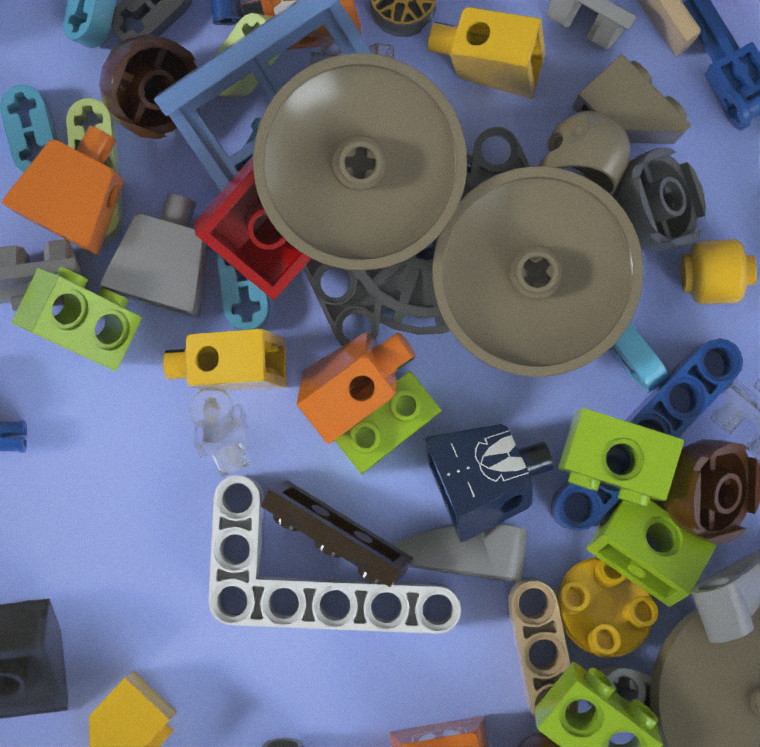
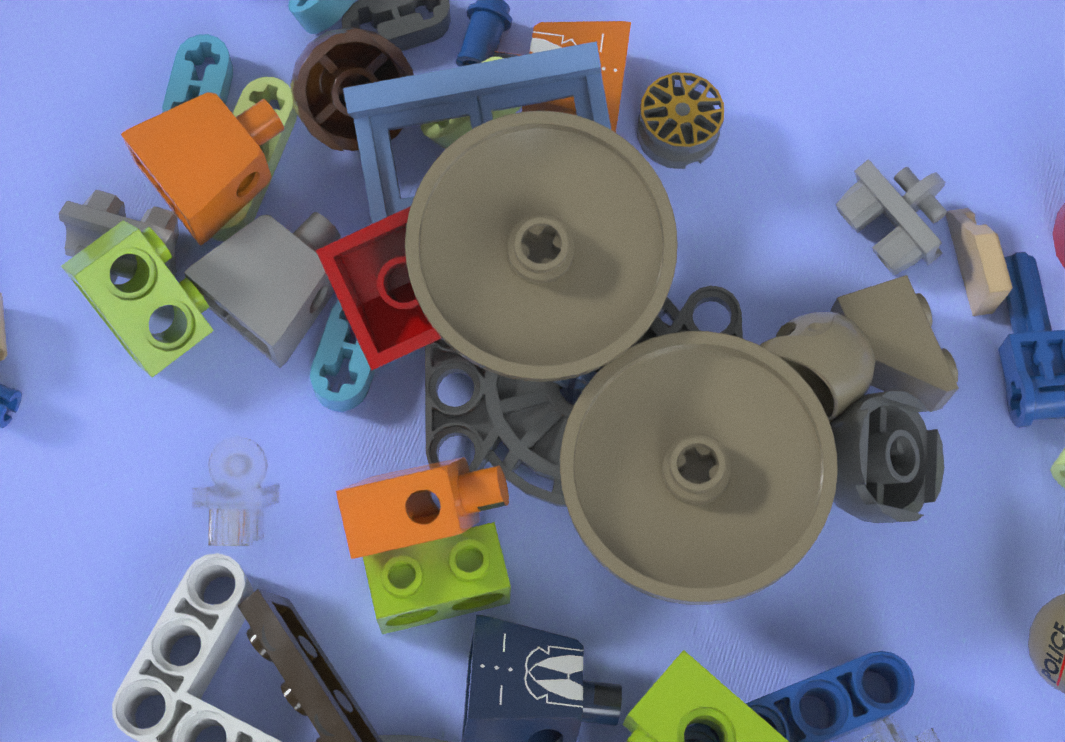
camera: 20 degrees right, 15 degrees down
(245, 360) = (294, 420): yellow torso -> none
(493, 49) = (760, 213): yellow torso -> none
(639, 360) = (780, 633): medium azure beam -> none
(717, 271) = (924, 576): yellow head -> none

